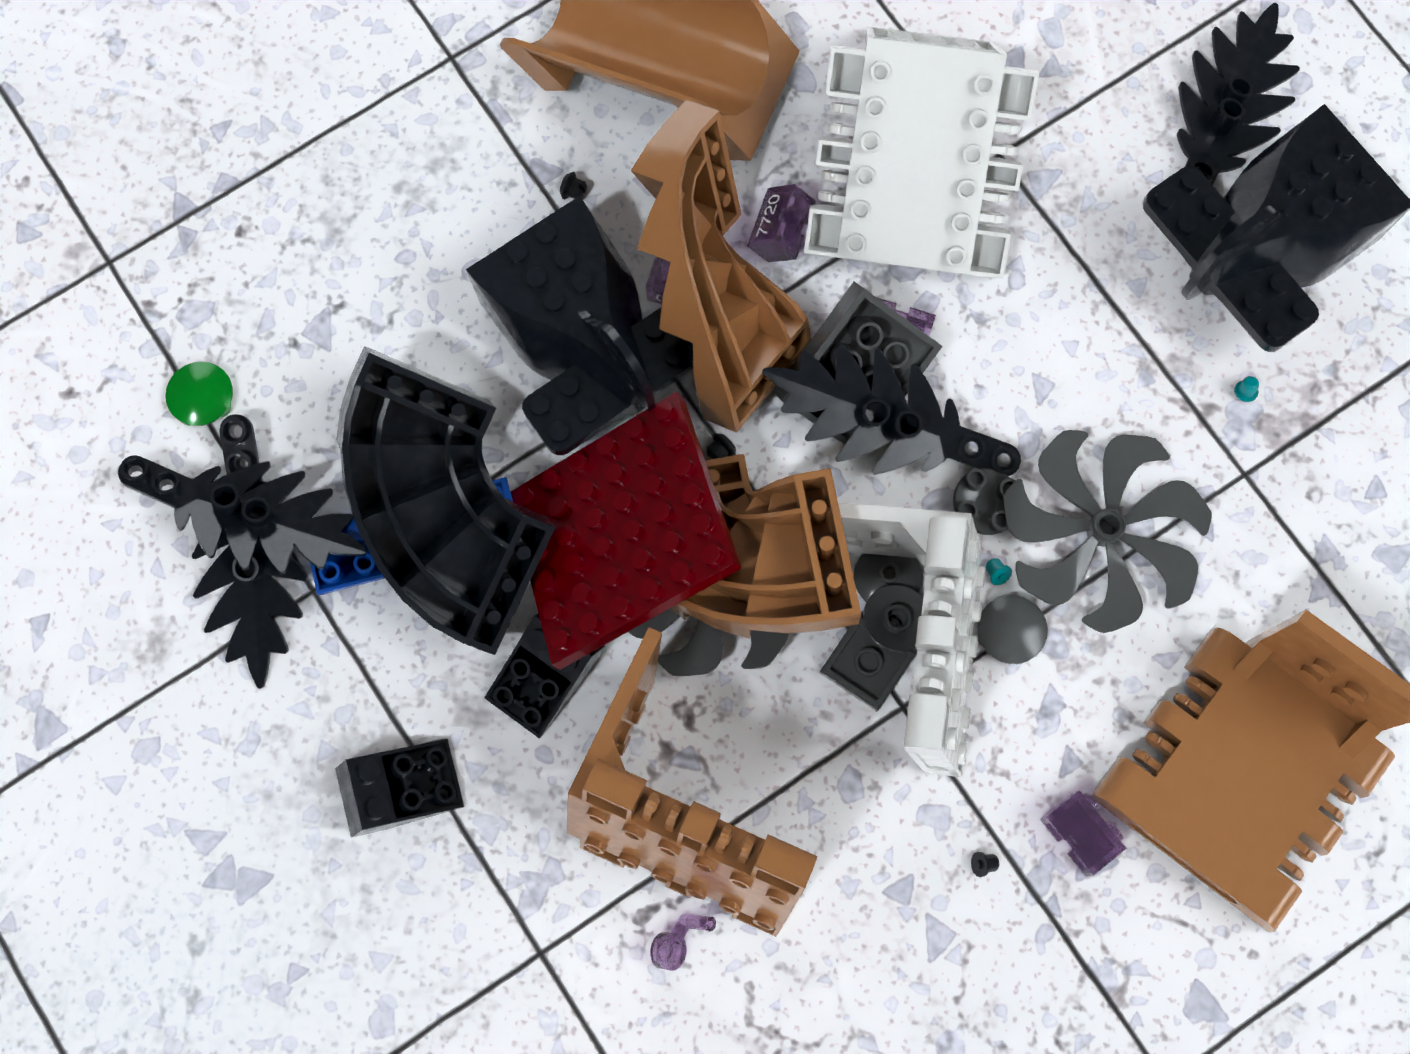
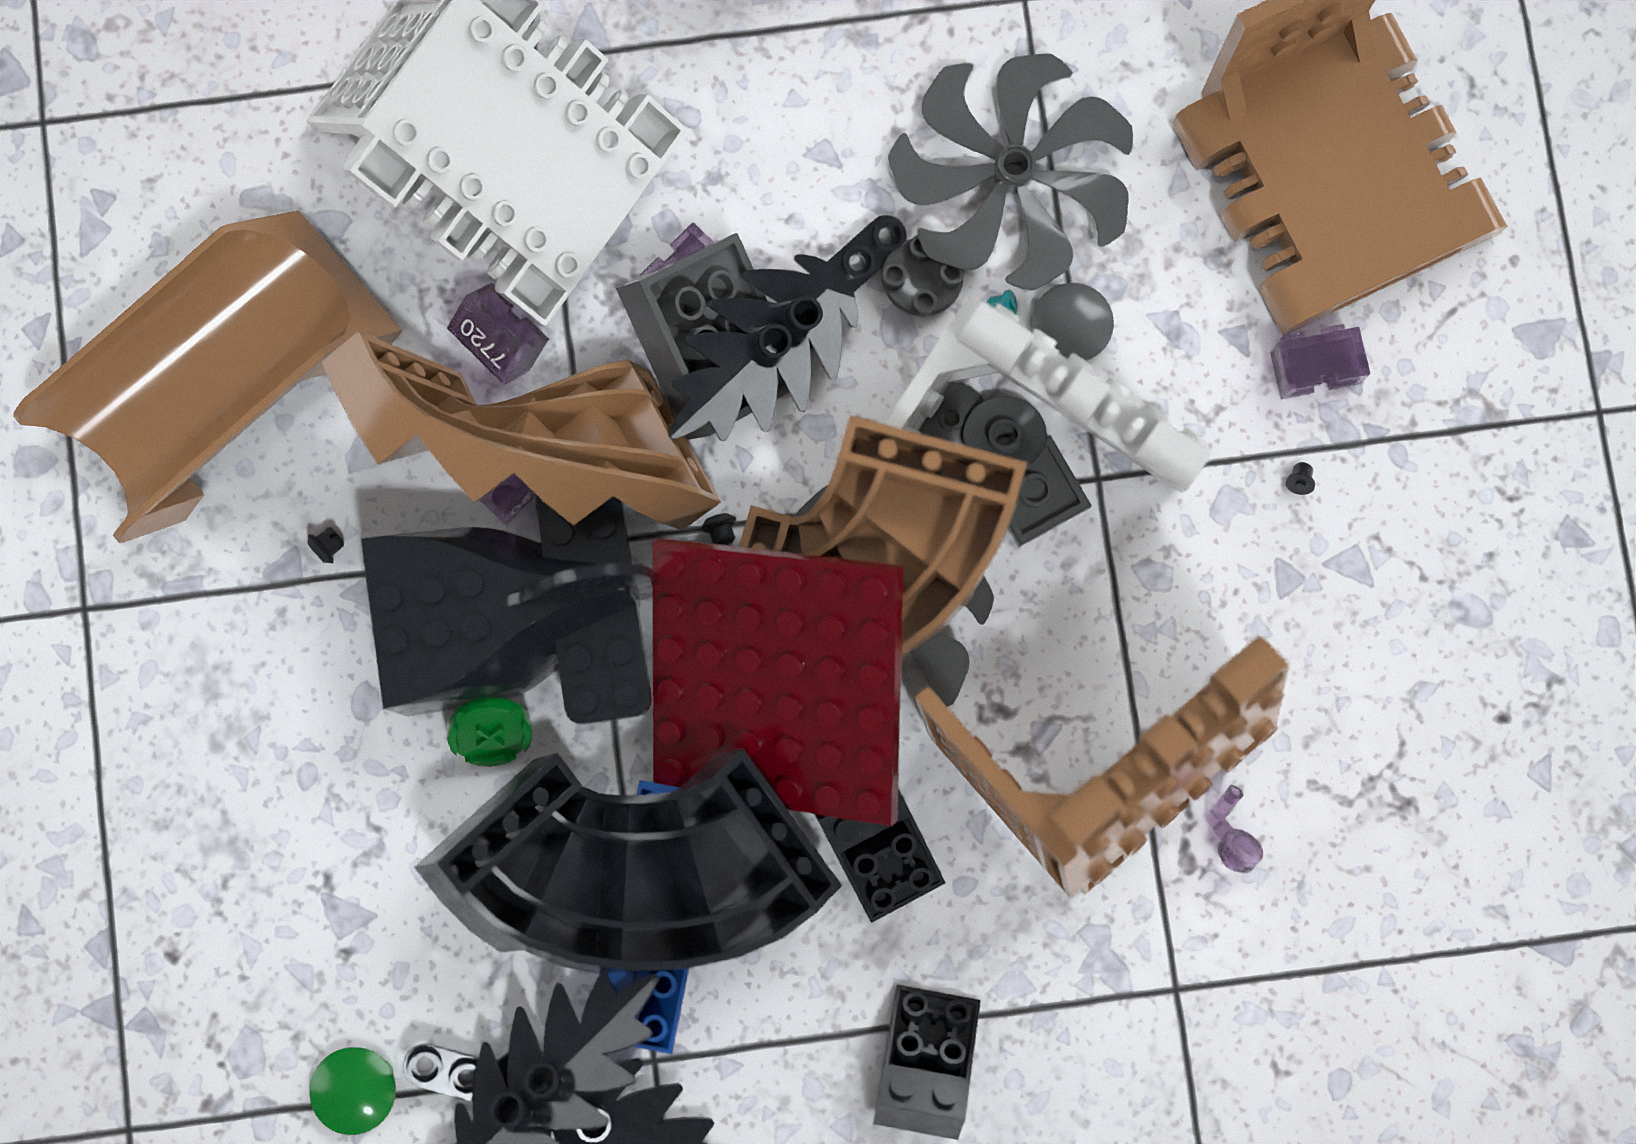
camera: 65 degrees left, 5 degrees up
(492, 357) = (489, 731): none -> green tile

